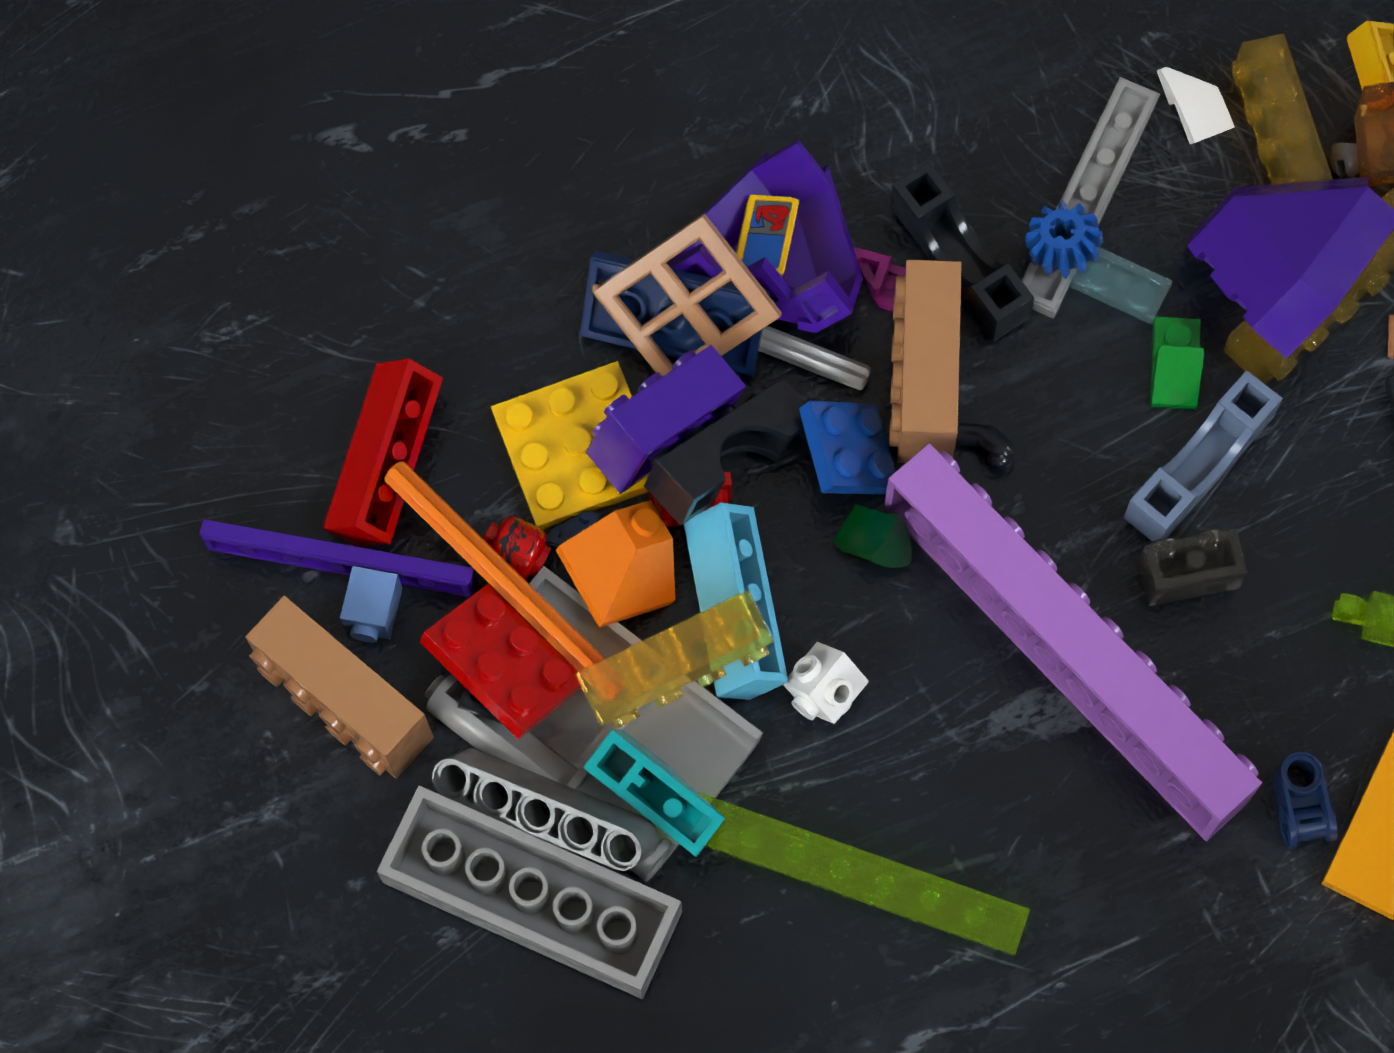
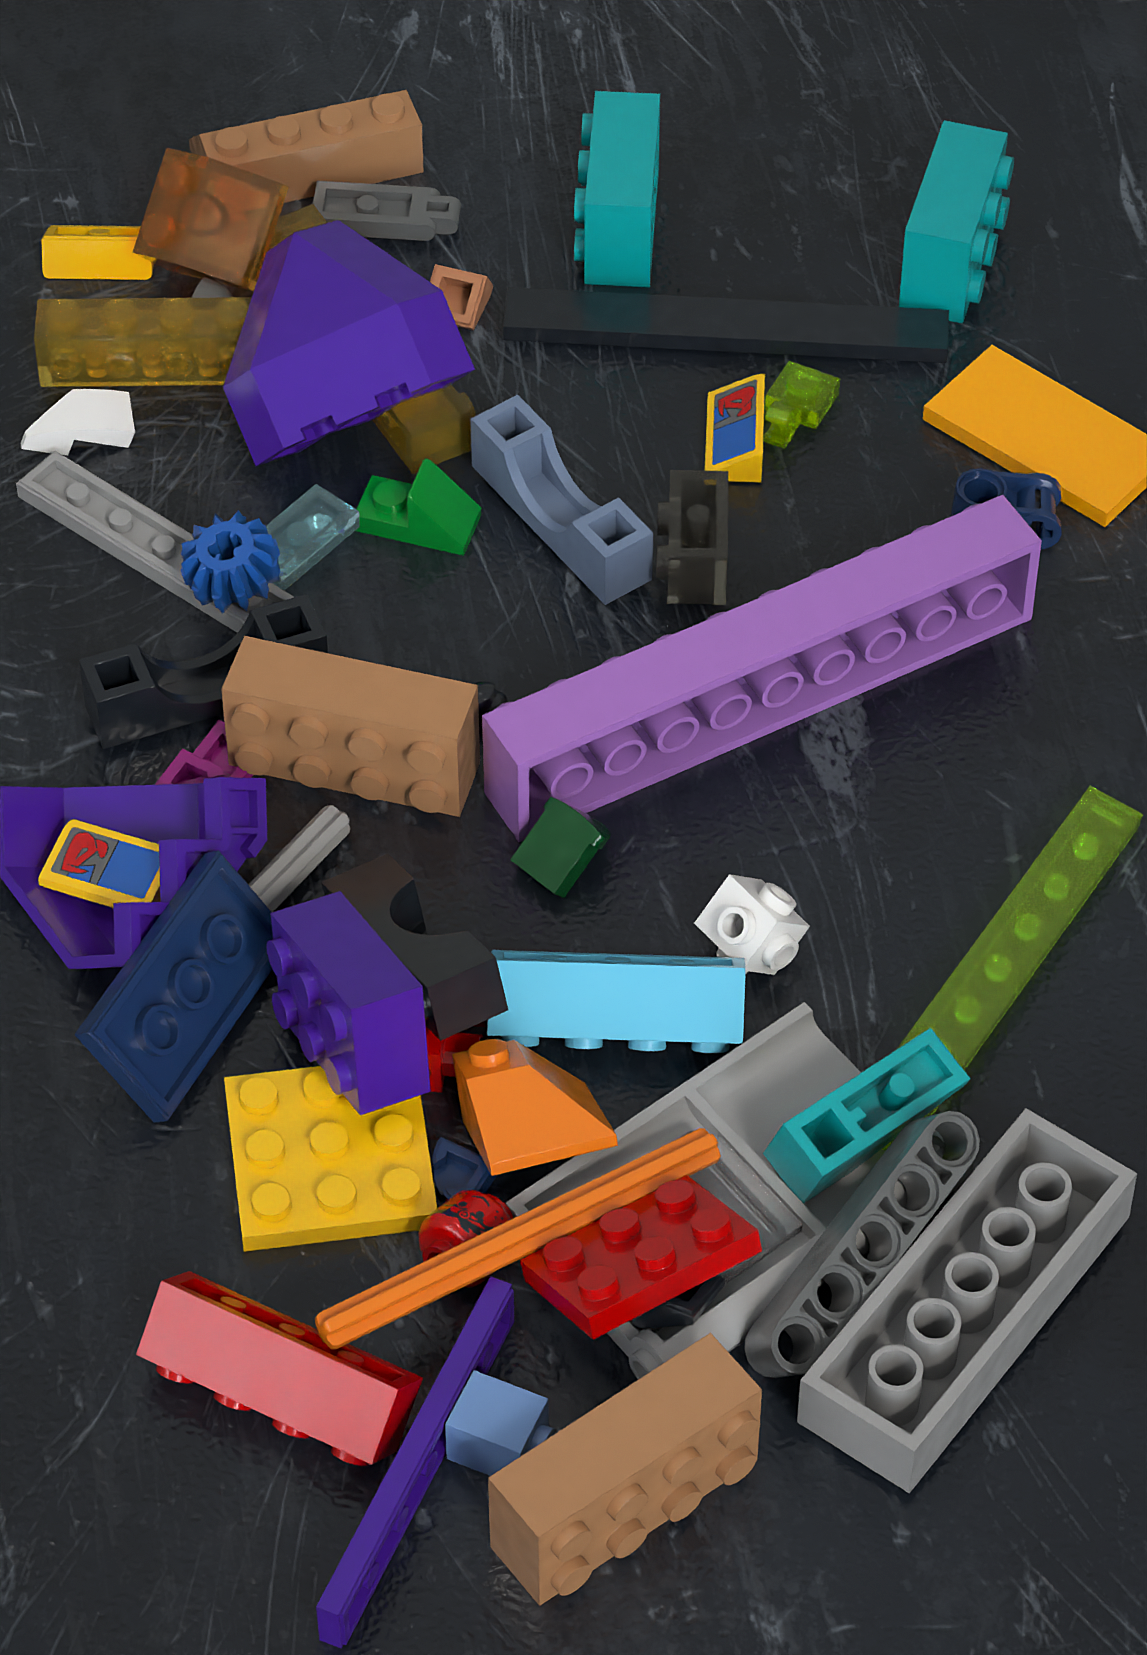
camera: 80 degrees left, 20 degrees down
(675, 658) = (704, 1030): clear yellow brick -> none
(685, 302) = (188, 945): medium nougat window -> none
(847, 447) = (462, 834): blue plate -> none
(1327, 576) = (736, 429): none -> slope

